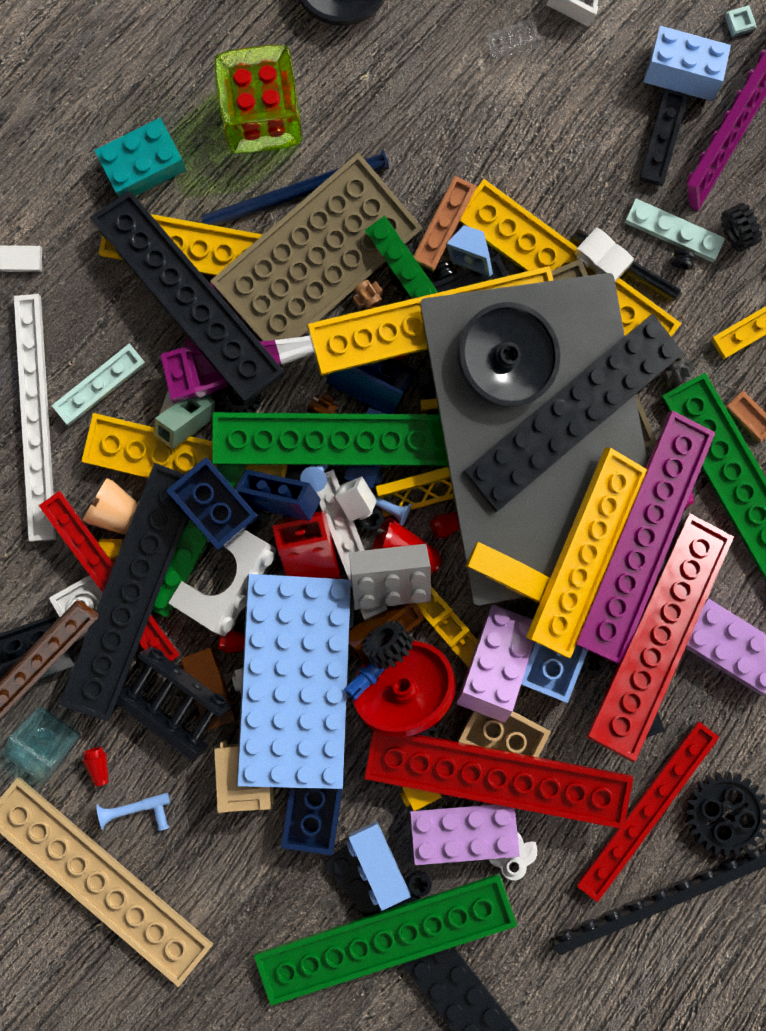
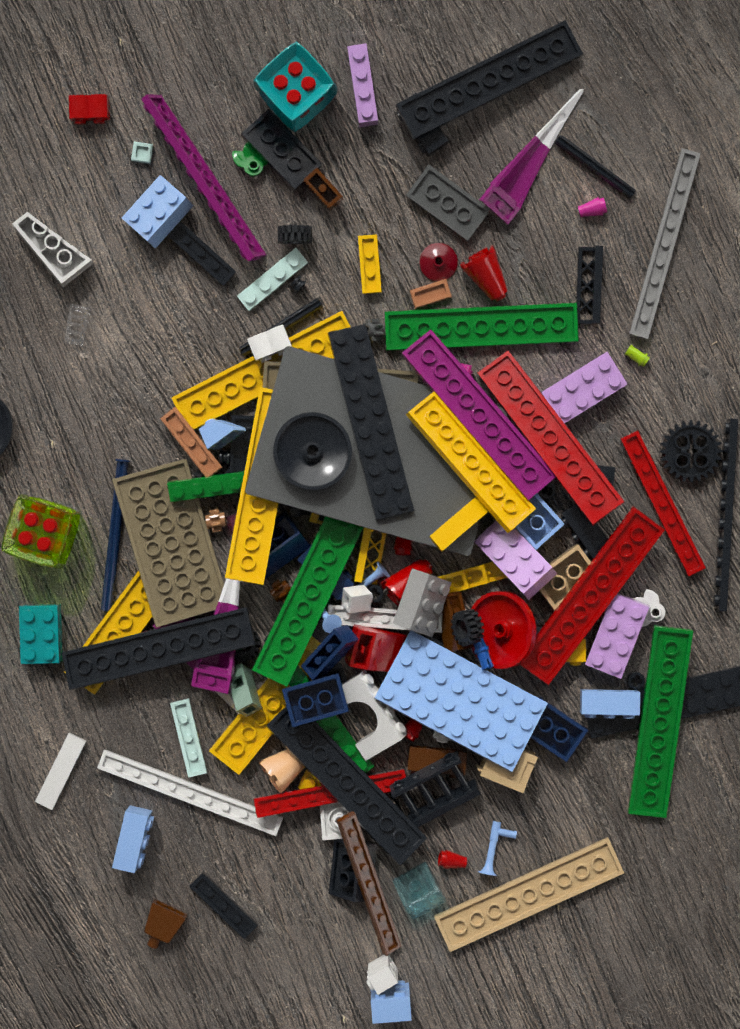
camera: 55 degrees left, 5 degrees up
(570, 730) = (590, 536): none -> black brick

